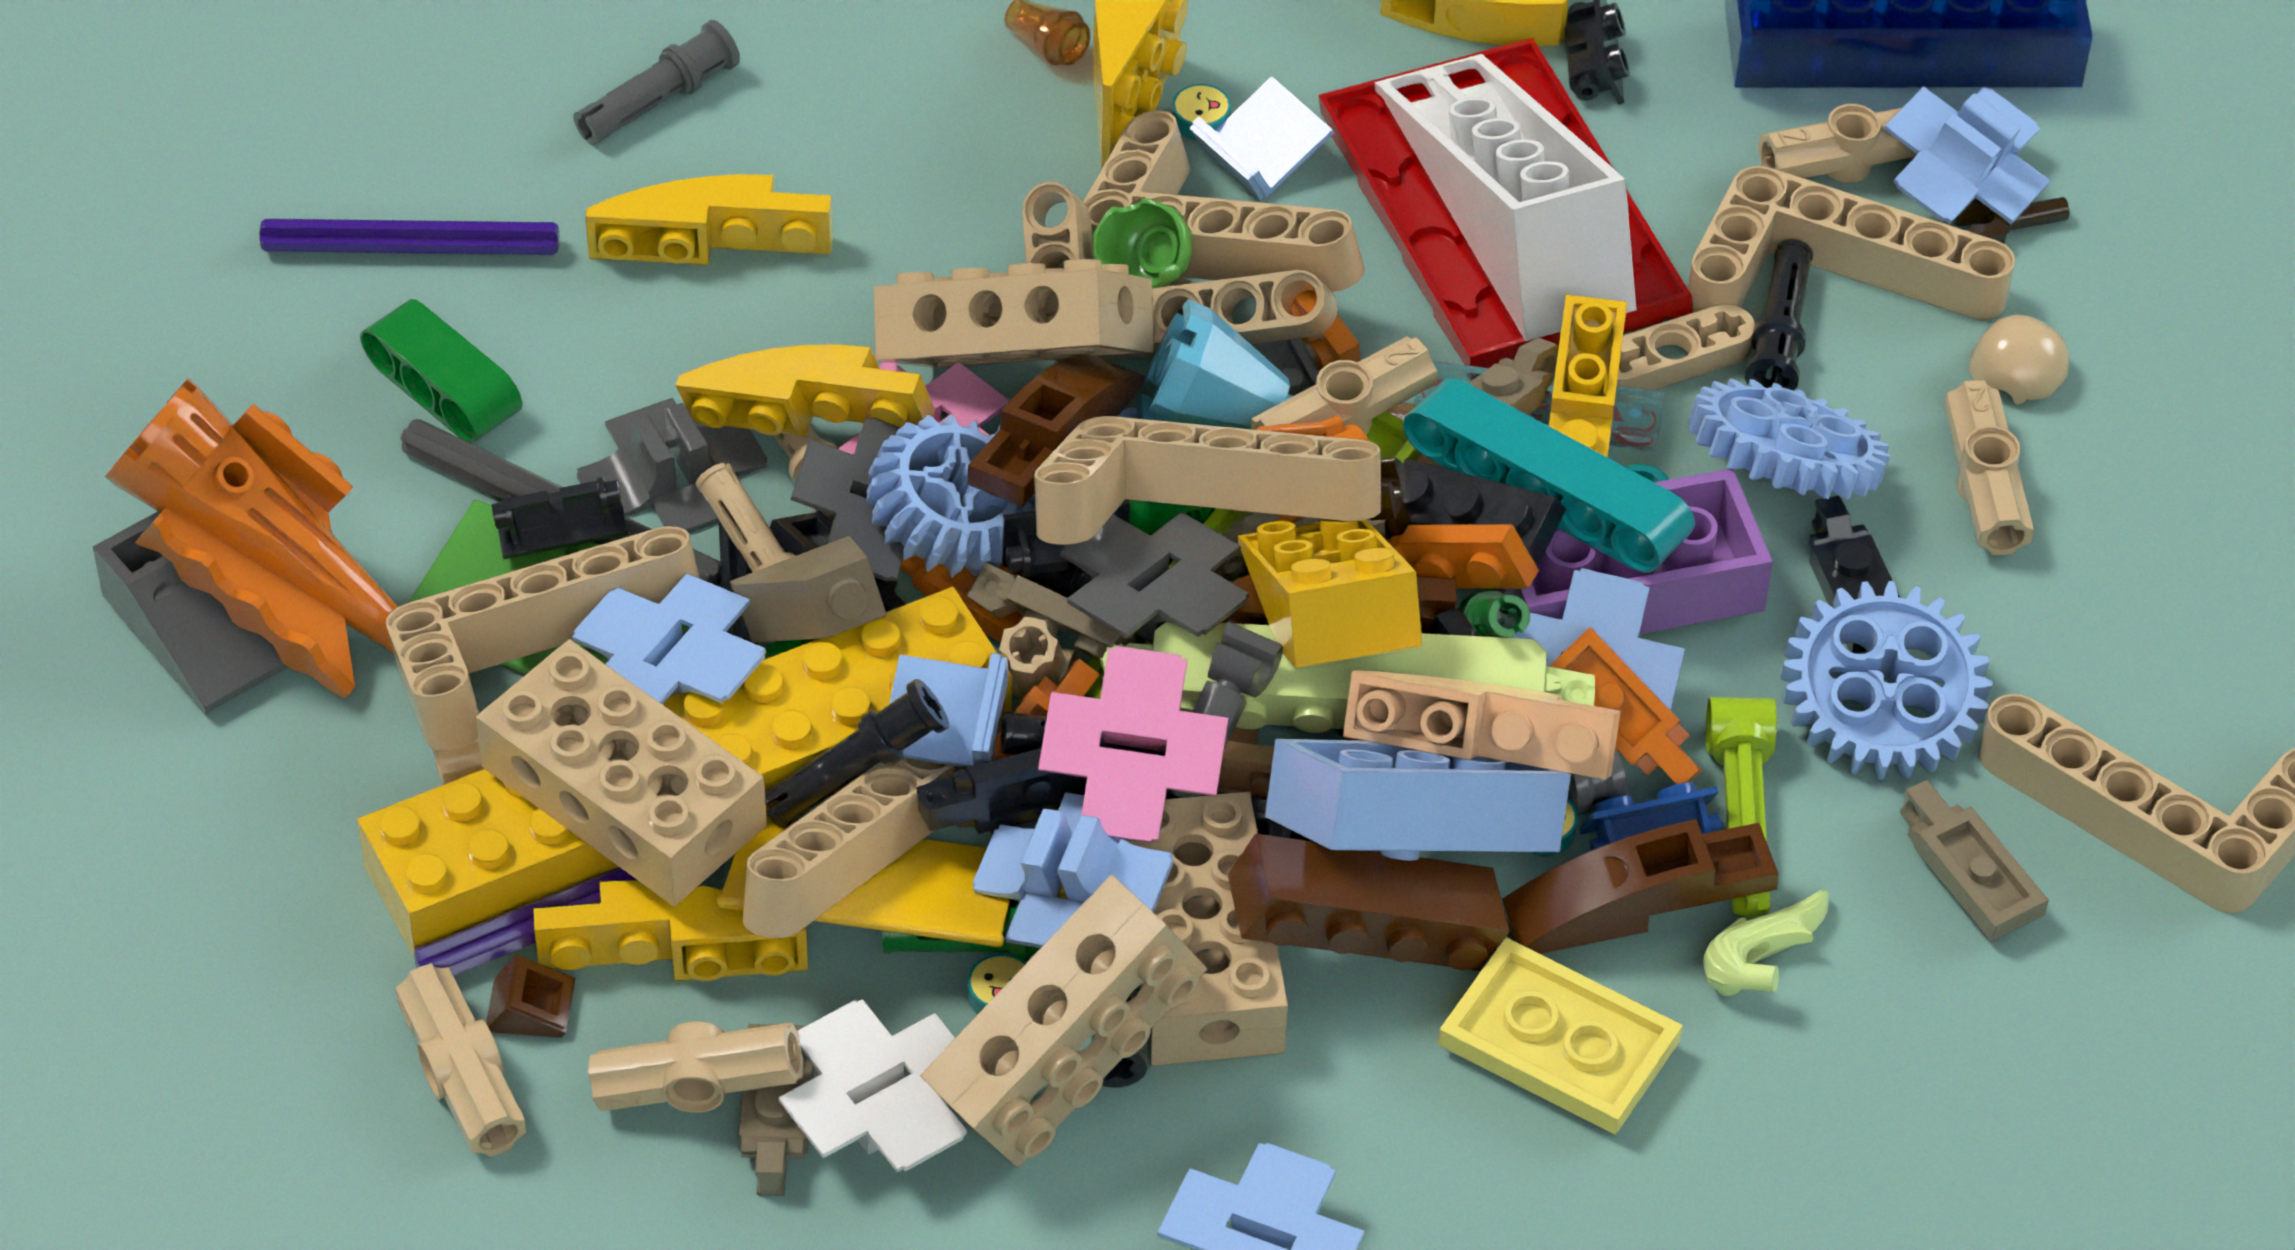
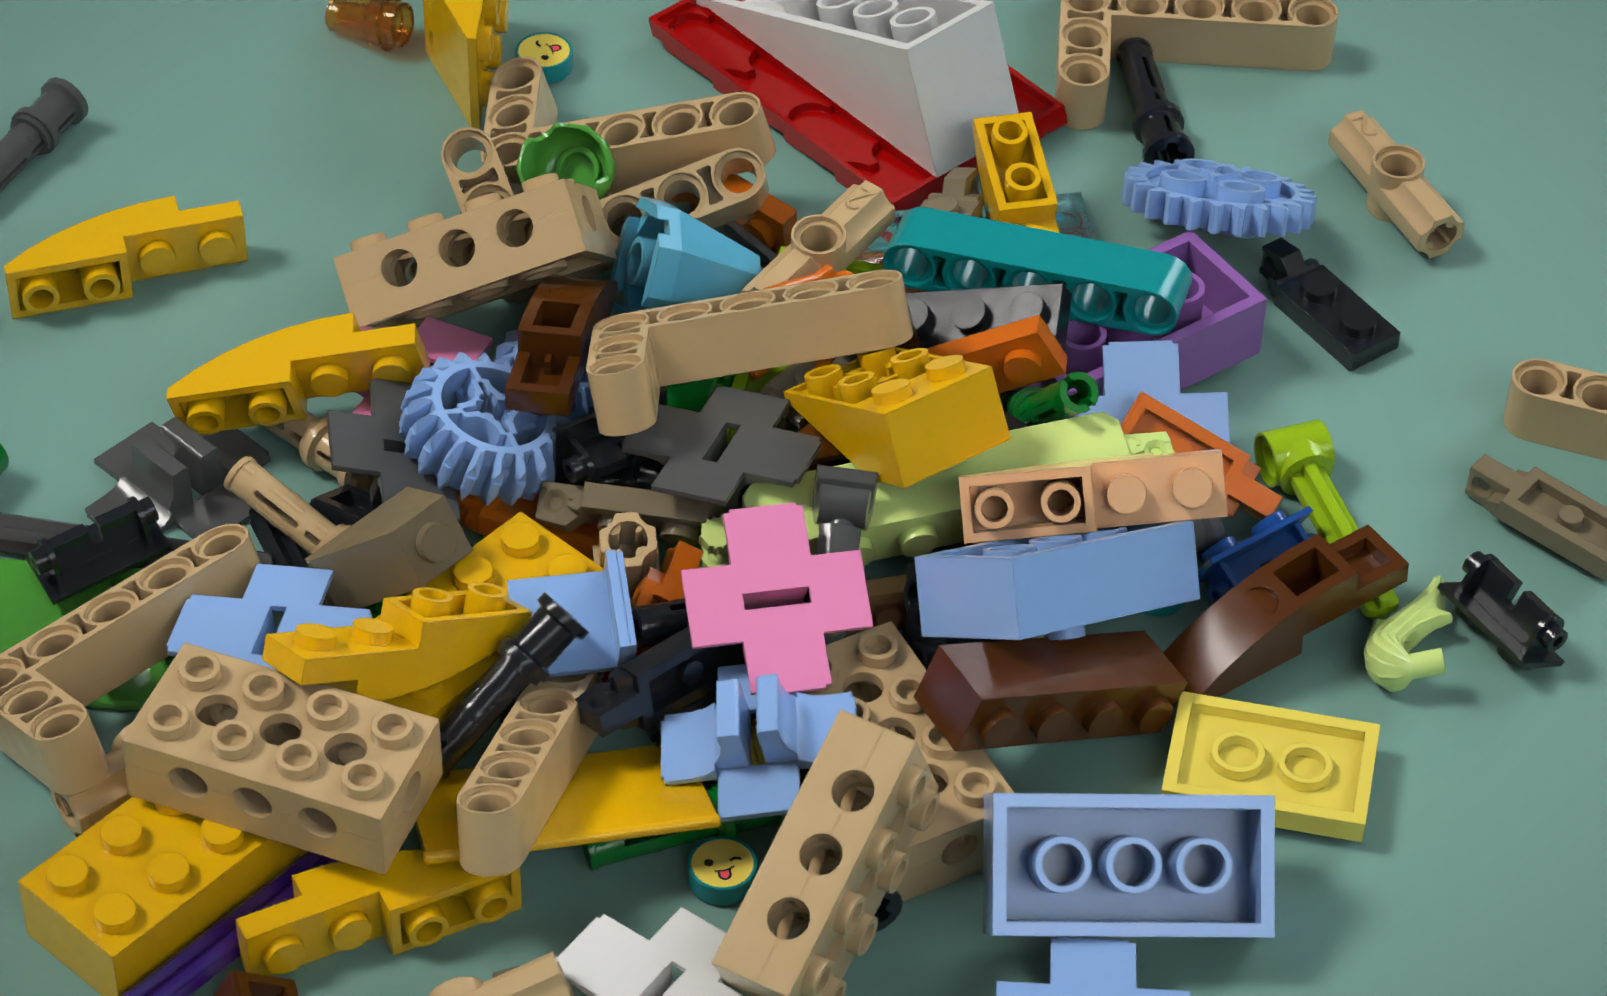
camera: 20 degrees left, 5 degrees down
(786, 696) = (410, 647): none -> yellow slope
(1264, 138) = (615, 64): piece -> none
(1358, 1094) = (1128, 865): none -> light blue brick
(1691, 334) = (1097, 136): tan beam -> none
(1867, 964) = (1523, 632): none -> black hinge
(1885, 730) = (1414, 366): light blue gear -> none
(2021, 358) = (1373, 84): tan hair -> none

